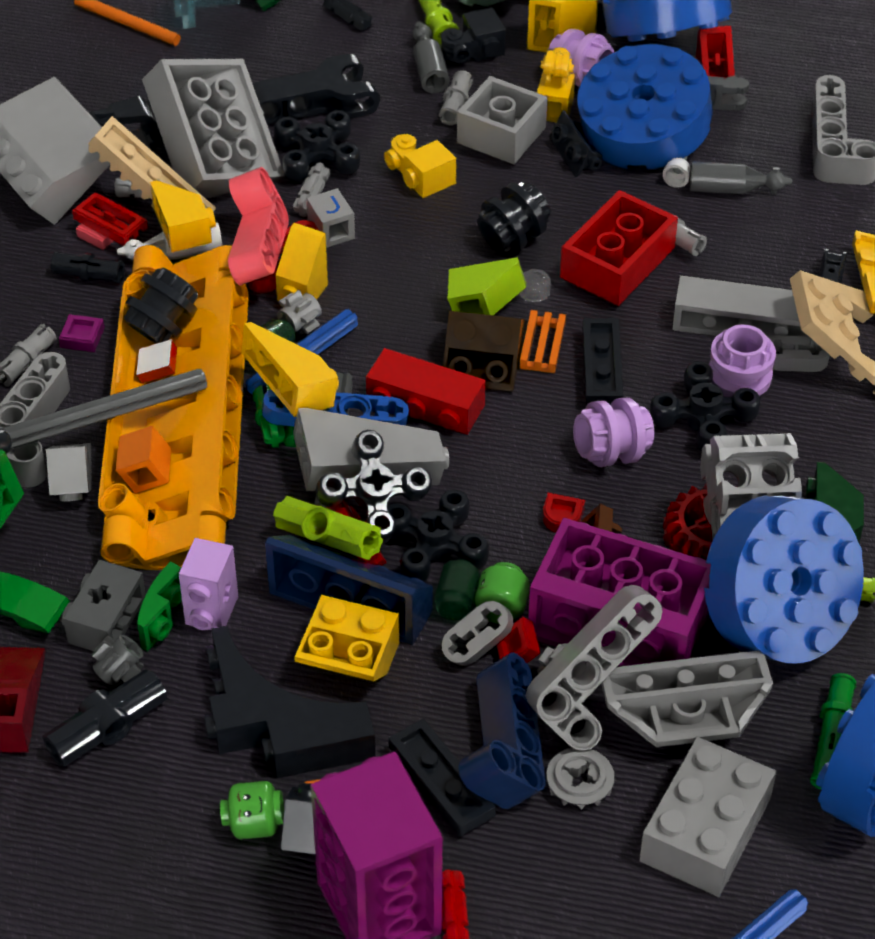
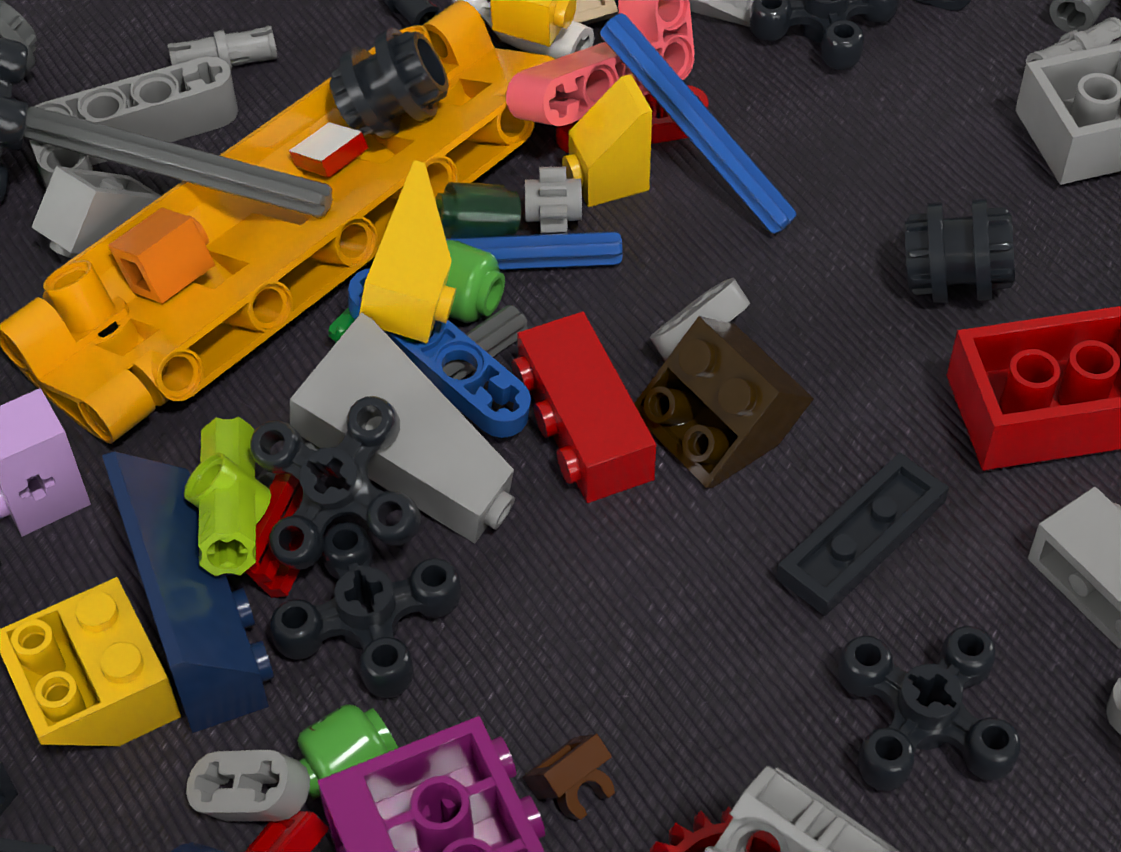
camera: 45 degrees right, 5 degrees up
(81, 333) = (308, 64): magenta tile -> none
(312, 186) = (759, 58): light grey axle -> none
(332, 216) = (738, 100): light grey brick -> none
(335, 231) = (698, 123): none -> blue axle
(423, 169) = (929, 113): yellow brick -> none
(431, 322) = (718, 303): none -> light grey beam
(456, 589) = (302, 699): clear green brick -> none
(485, 286) = (809, 320): lime slope -> none
(536, 293) = (898, 349): clear axle -> none
(546, 323) = (813, 440): orange tile -> none
(561, 506) = (571, 705): red tile -> none
(613, 431) = (748, 644): lavender piece -> none
(742, 360) = (1044, 680): lavender piece -> none

